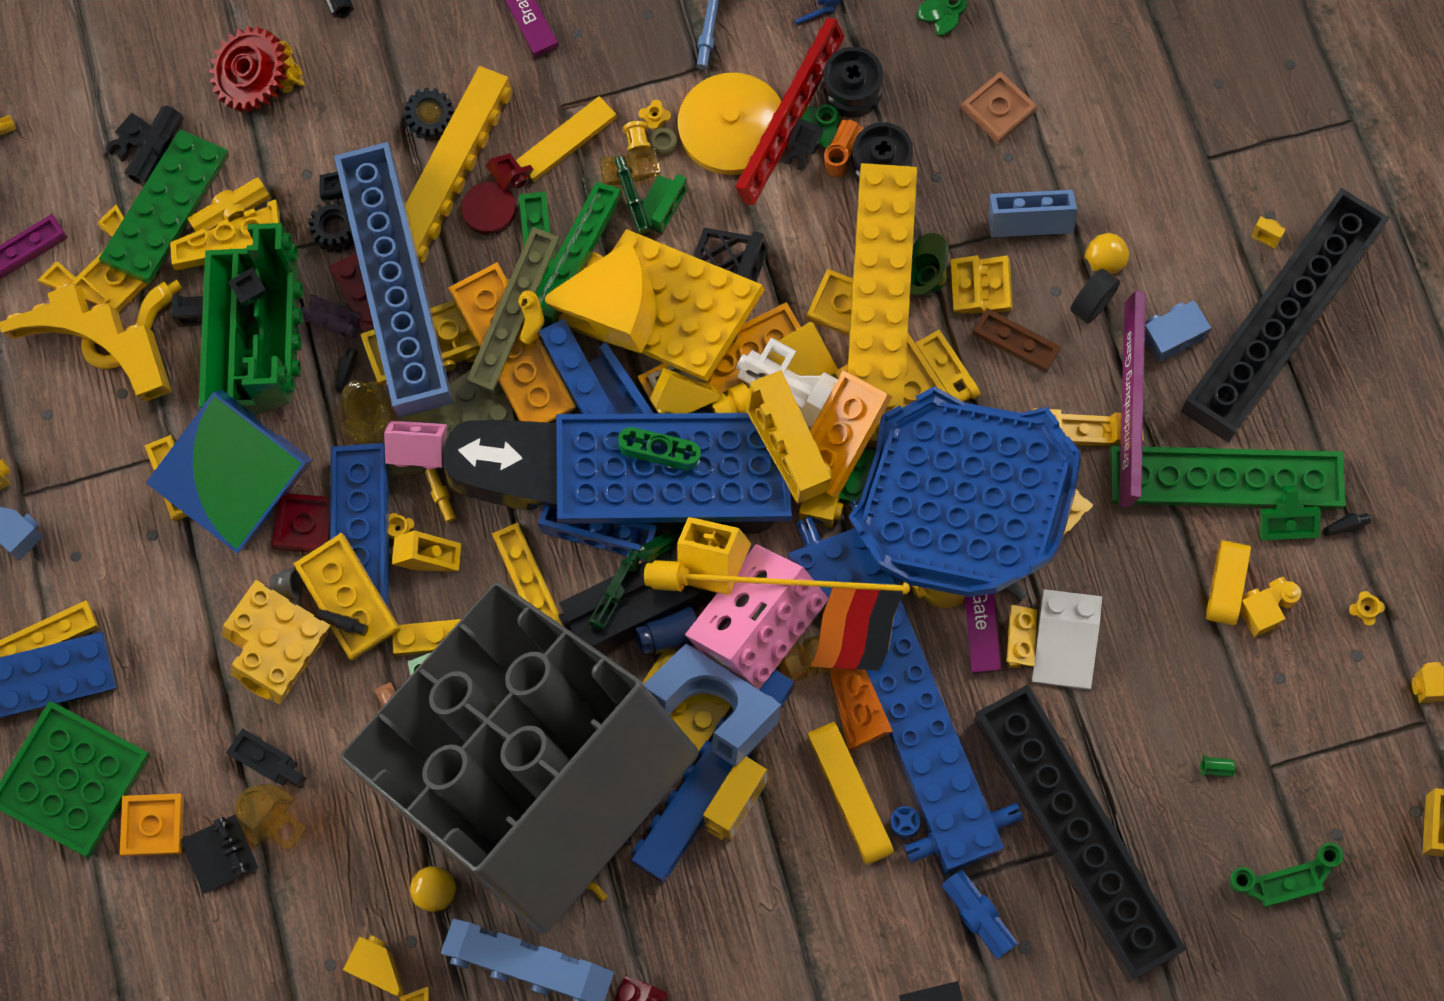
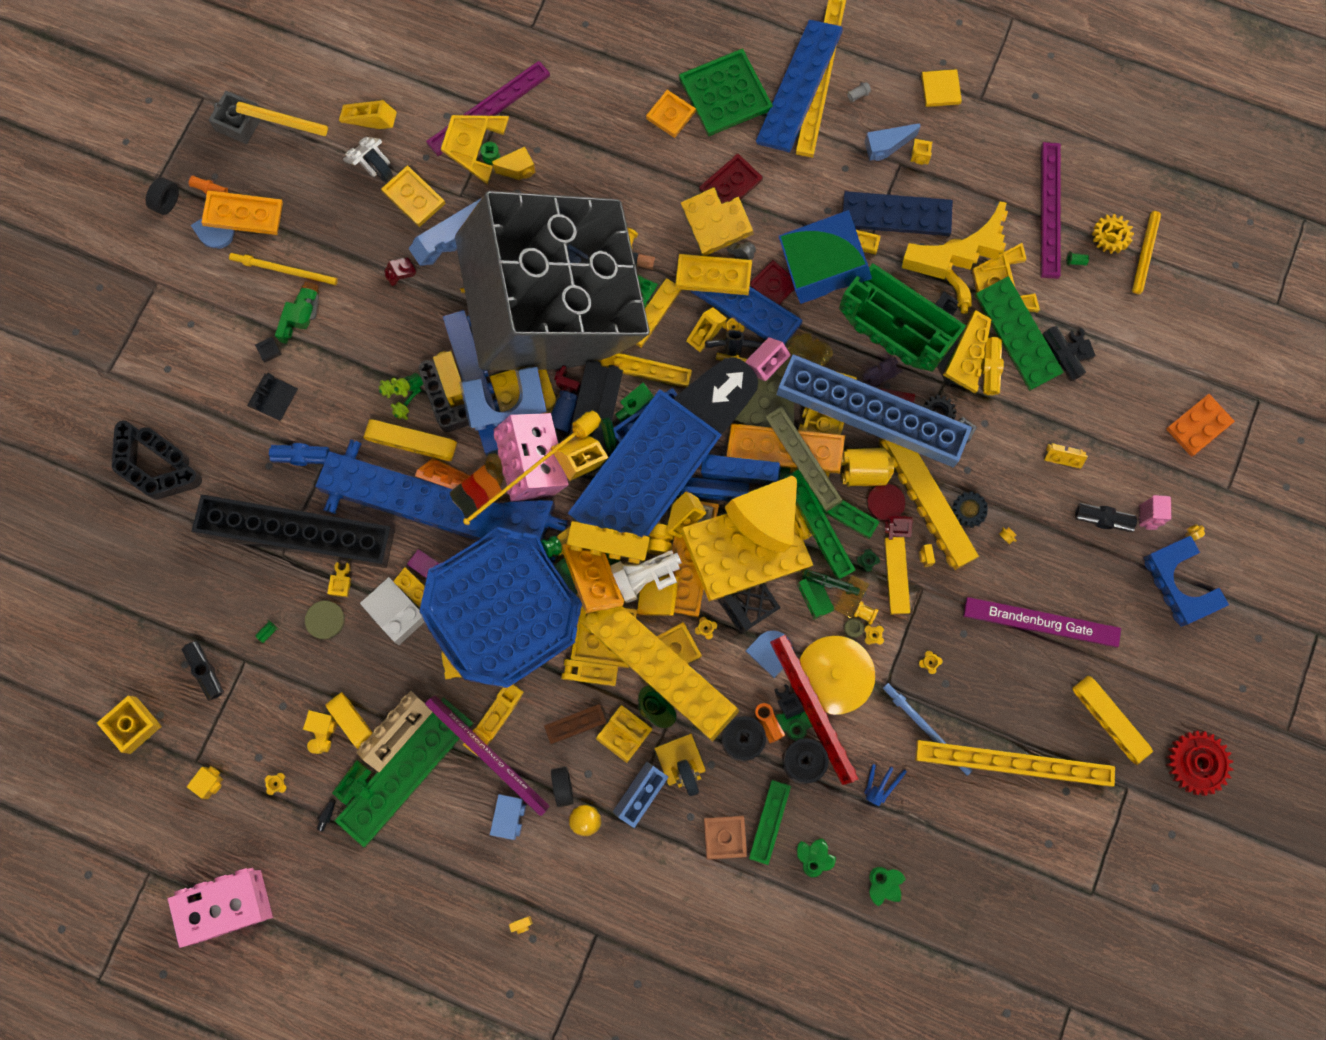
camera: 120 degrees right, 5 degrees up
(15, 210) = (1077, 259): none -> green piece
(98, 450) = (899, 213): none -> dark blue plate
(197, 673) = (733, 180): none -> dark red plate
(219, 853) = (630, 134): black hinge -> none
(248, 287) = (923, 328): black plate -> none
(249, 69) = (1075, 432): red gear -> none
(263, 812) = (636, 166): clear yellow container -> none
(265, 759) = (660, 184): black hinge -> none
(343, 622) = (699, 260): black animal -> none
(345, 367) = (846, 362): black bar -> none
(421, 505) = (733, 343): none -> black piece
(428, 59) = (1008, 535): none -> yellow plate
(463, 244) = (867, 467): none -> yellow cylinder
(519, 121) = (926, 555): none -> yellow plate
(533, 316) = (790, 464): yellow arm -> none
(572, 172) = (868, 554): none -> dark green plate
(579, 549) = (640, 397): none -> green torso
(615, 590) = (604, 399): dark green piece -> none
(628, 656) = (565, 383): none -> dark red bracket
(638, 34) = (936, 661): none -> yellow plate
(652, 438) = (666, 458): green beam -> none
(762, 802) = (440, 396): none -> black beam
(769, 209) = (764, 654): none -> medium blue tile
(792, 281) = (701, 631): none -> yellow plate
(796, 848) = (401, 387): none -> lime plant
(841, 509) = (552, 546): none -> green wheel
(907, 818) = (371, 451): blue wheel -> none
(945, 74) = (769, 822): none -> green plate
(962, 199) = (681, 763): none -> yellow plate
(1088, 728) = (340, 584): none -> yellow plate
(1144, 711) = (324, 620): none -> olive tile
(1196, 519) = (394, 731): none -> tan brick
(1284, 315) = (464, 888): black brick -> none
(1290, 882) = (182, 616): green plate -> none
(1320, 816) = (197, 659): none -> black piece

